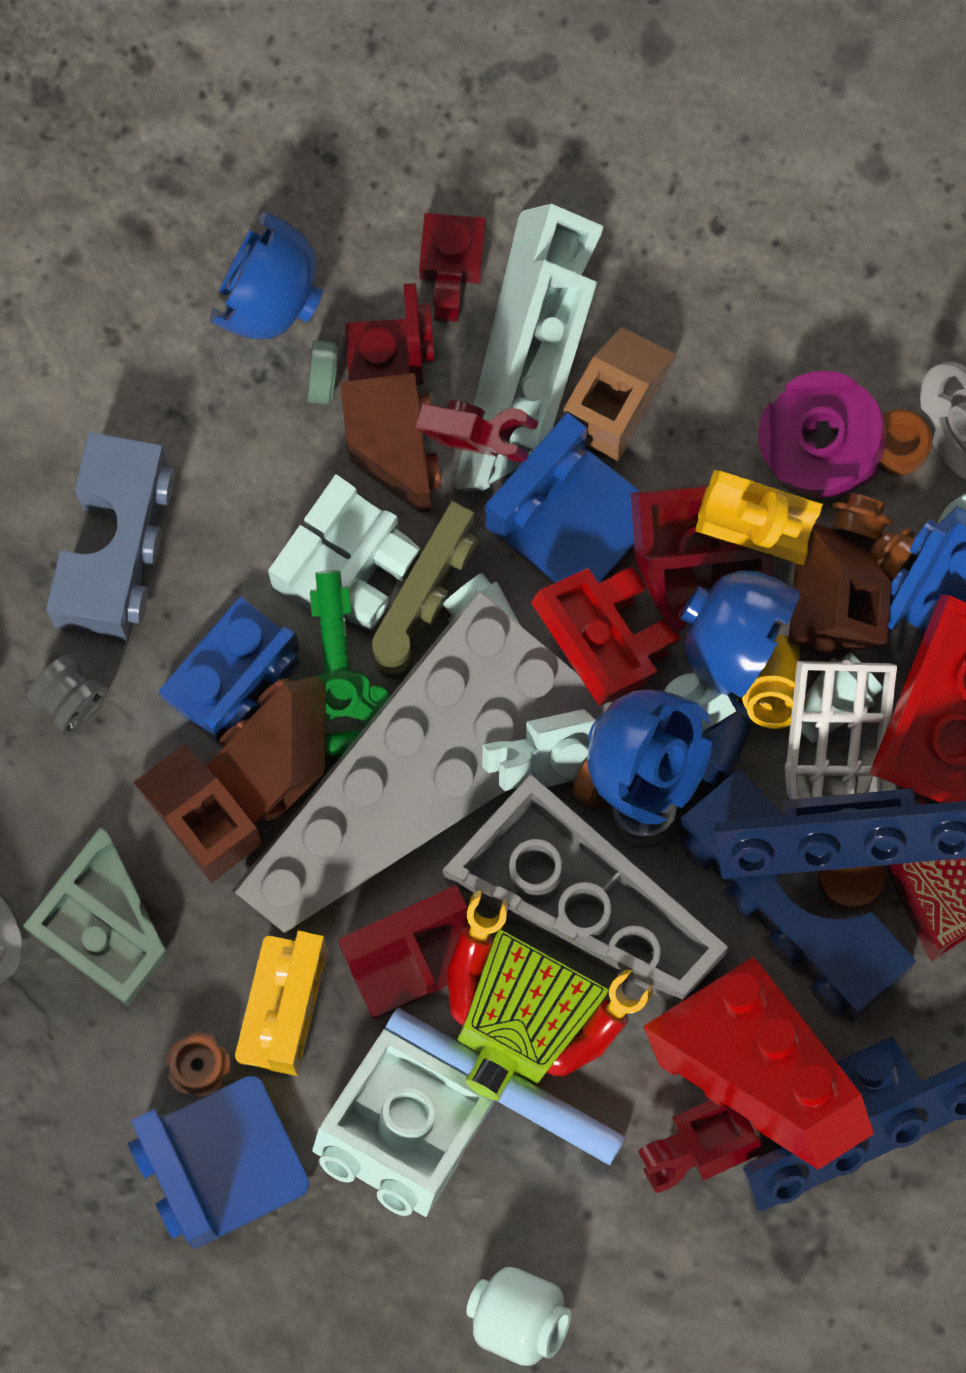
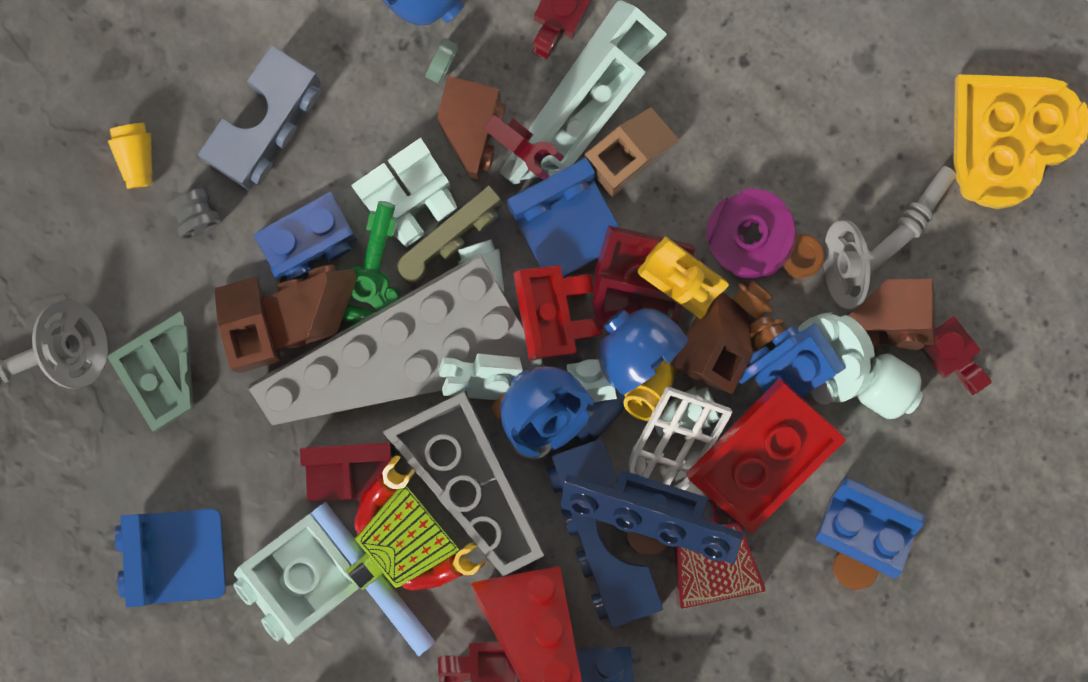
camera: 20 degrees right, 10 degrees up
(180, 1061) = (172, 488): dark orange plate -> none
(282, 1003) = (251, 472): yellow bracket -> none
(393, 345) = (493, 61): dark red bracket -> none

